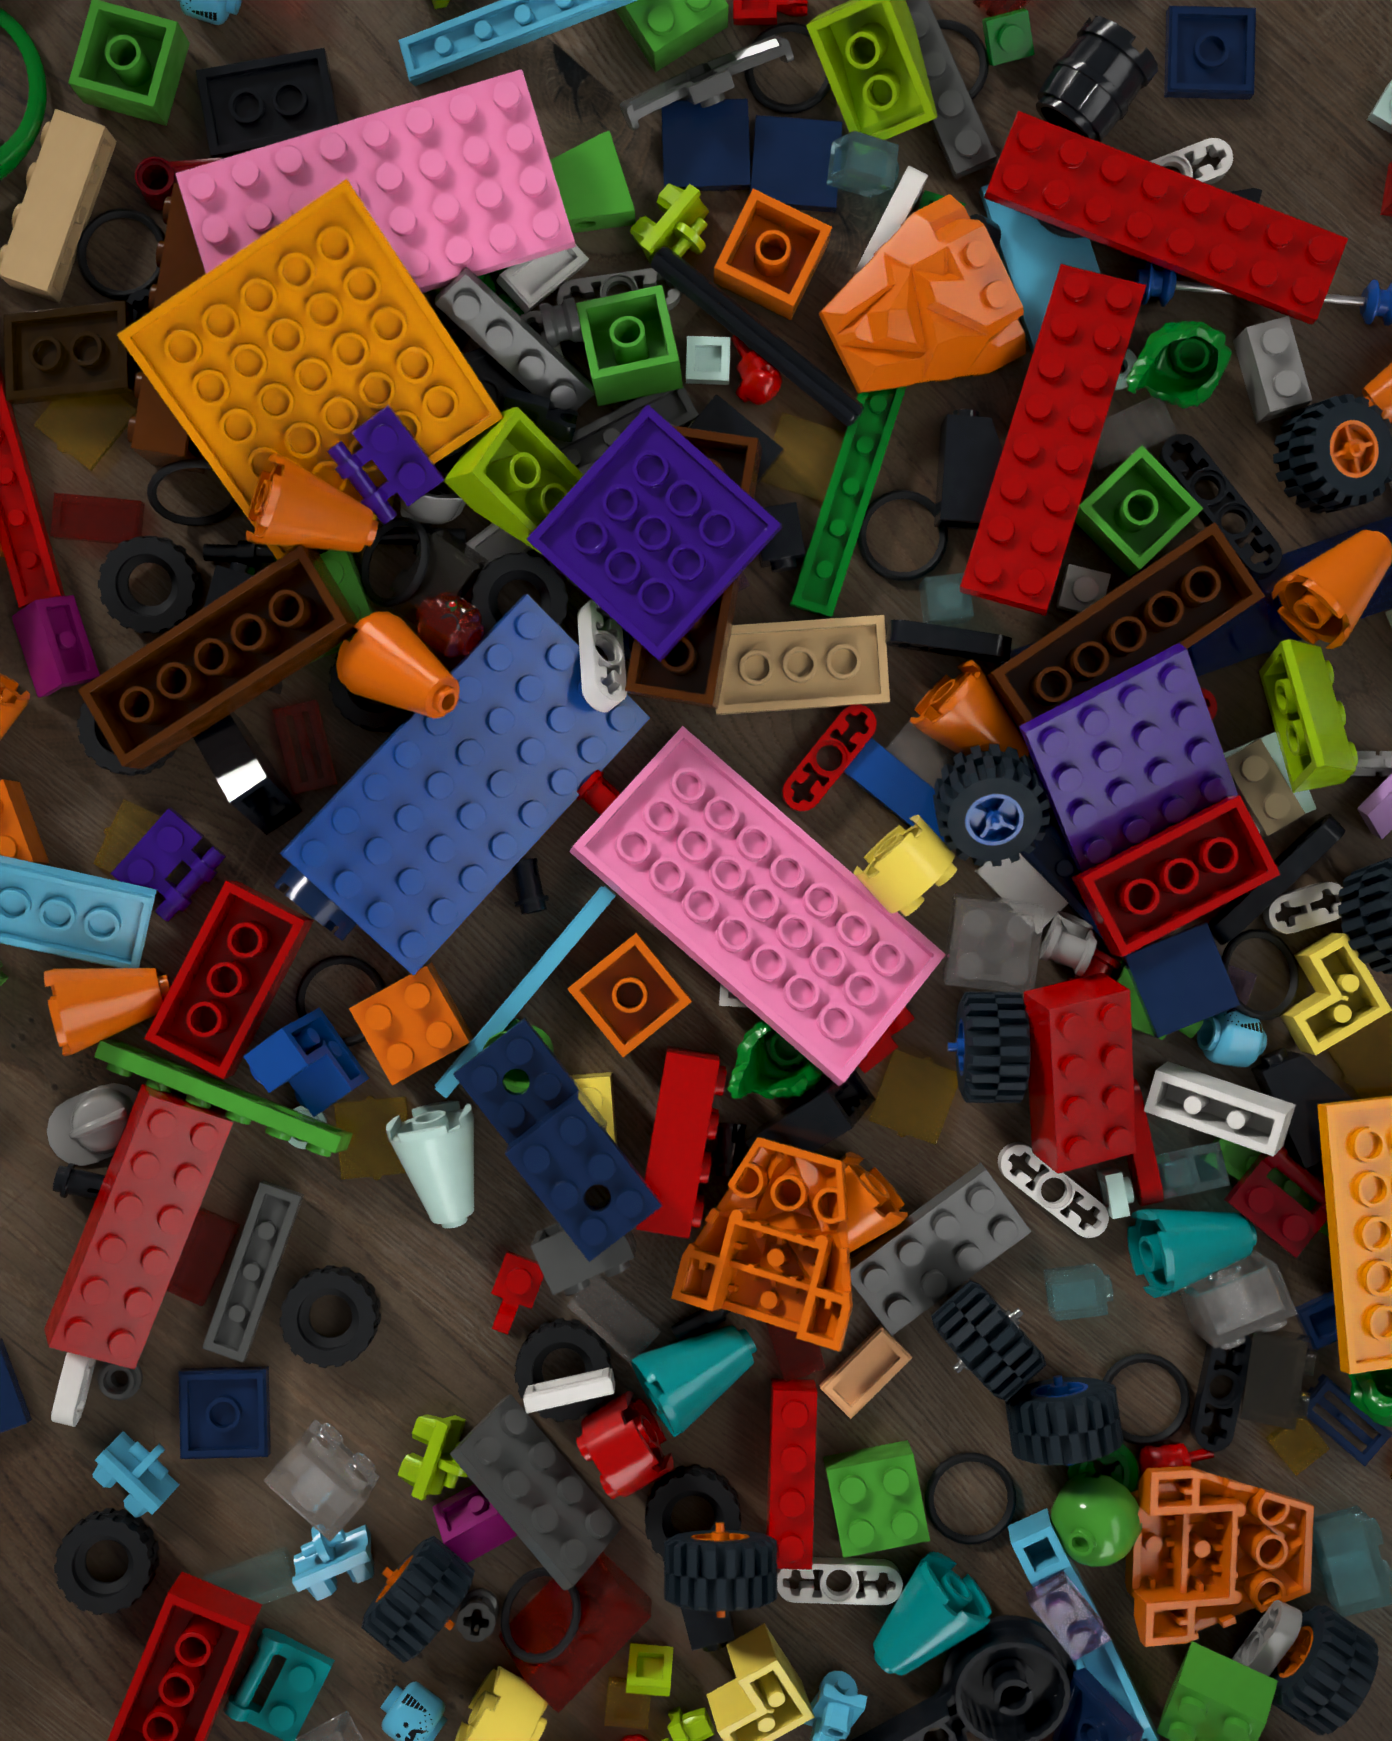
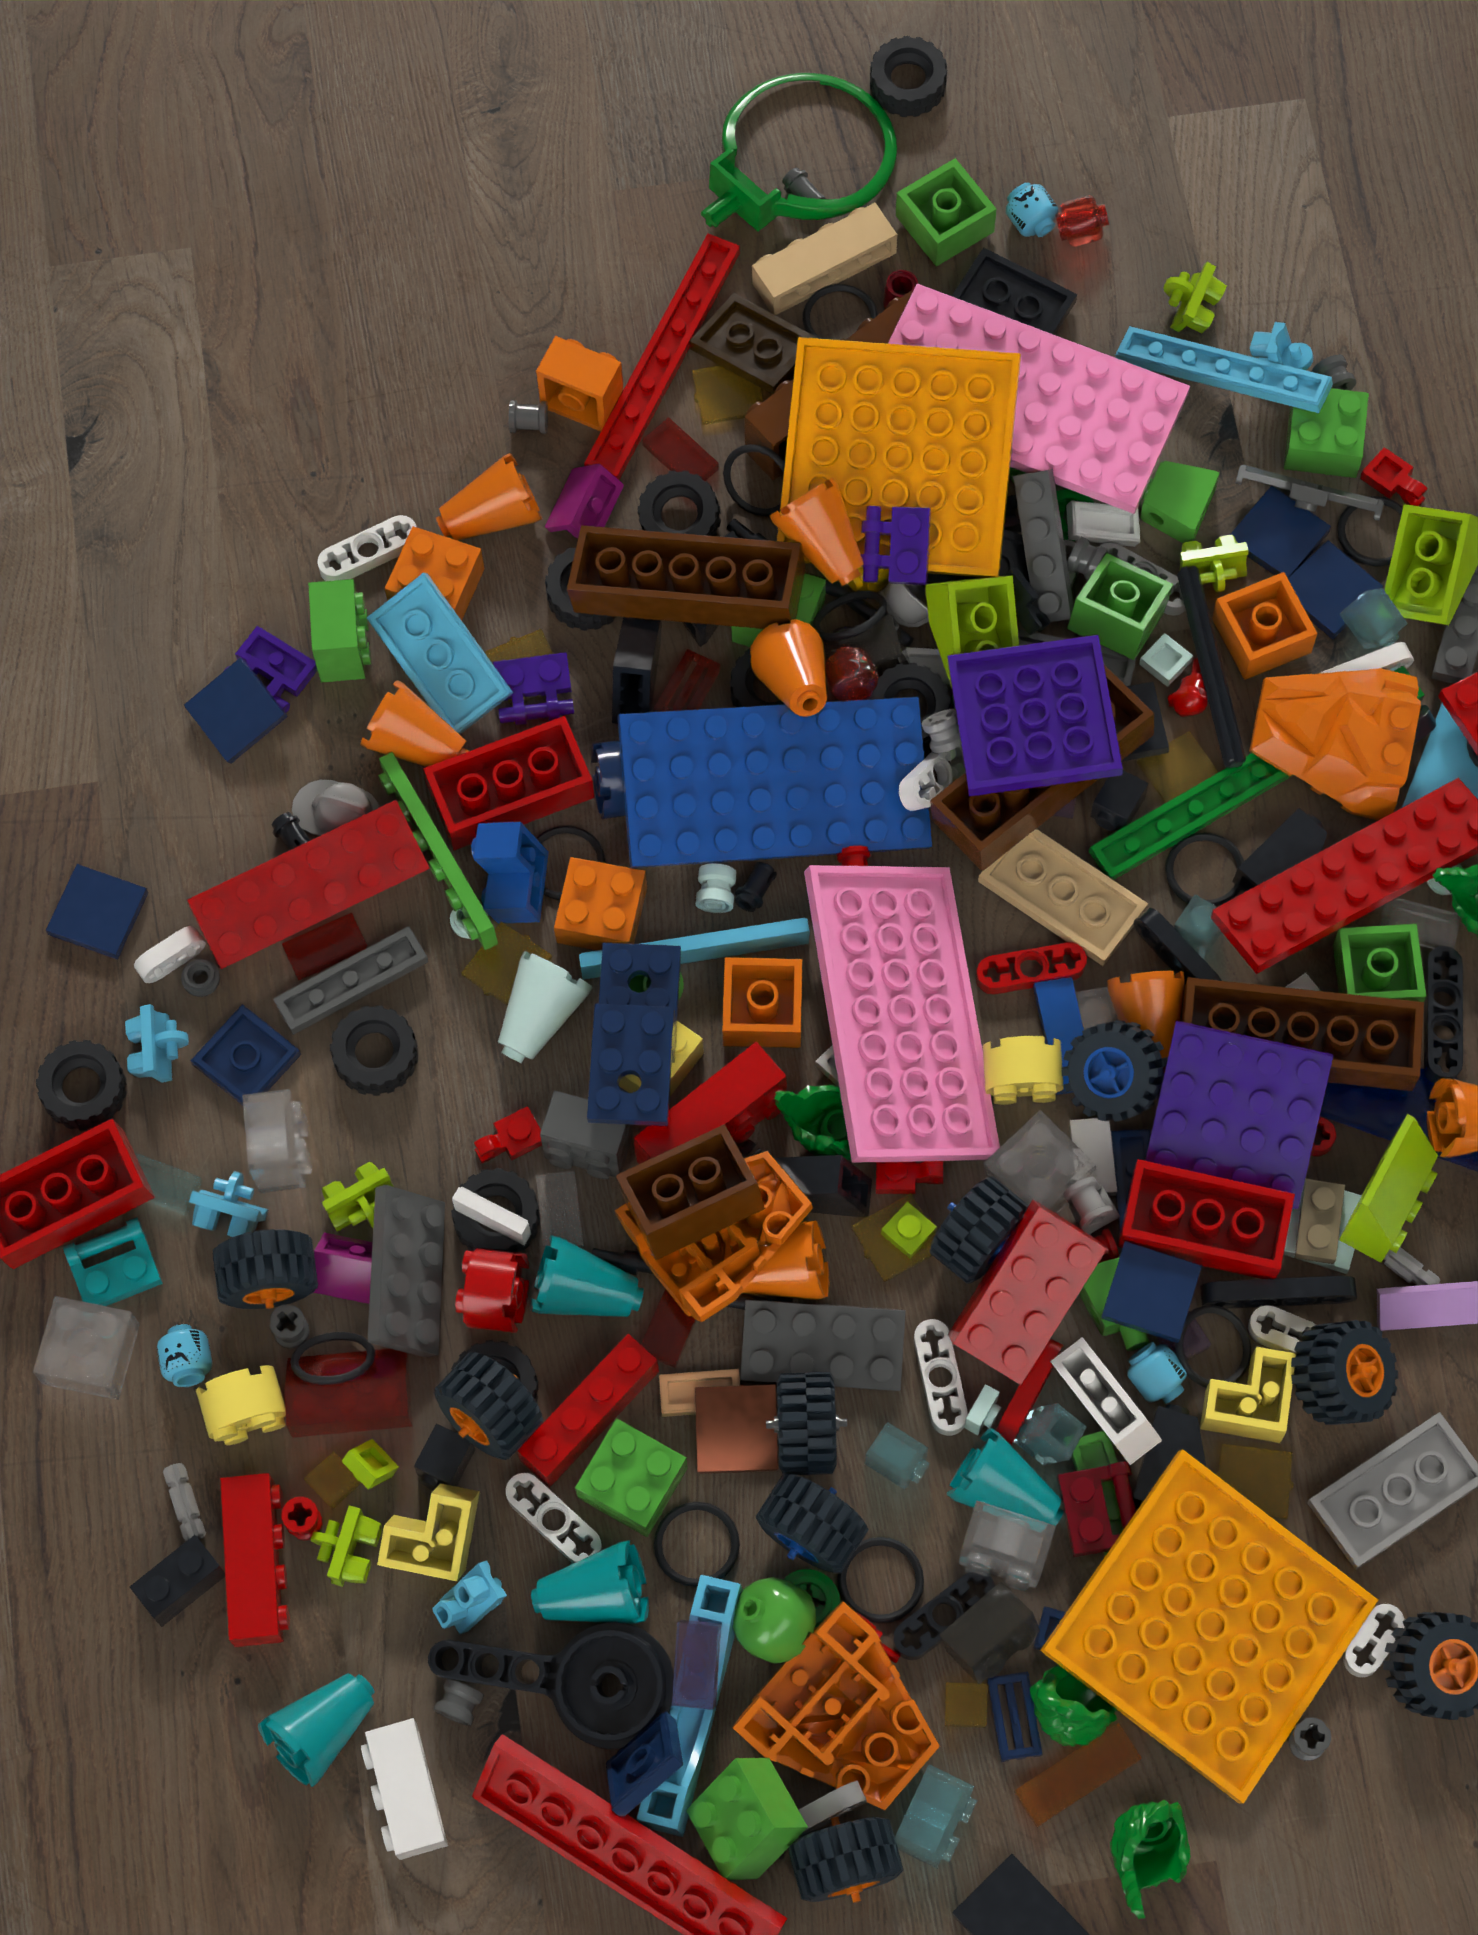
camera: 45 degrees right, 20 degrees down
(497, 919) = (716, 886): none -> light aqua wheel
(574, 606) = (942, 730): none -> light grey wheel
(732, 1246) = (690, 1192): none -> reddish brown brick
(920, 1380) = (733, 1429): none -> copper slope
(922, 1086) = (908, 1230): none -> lime plate

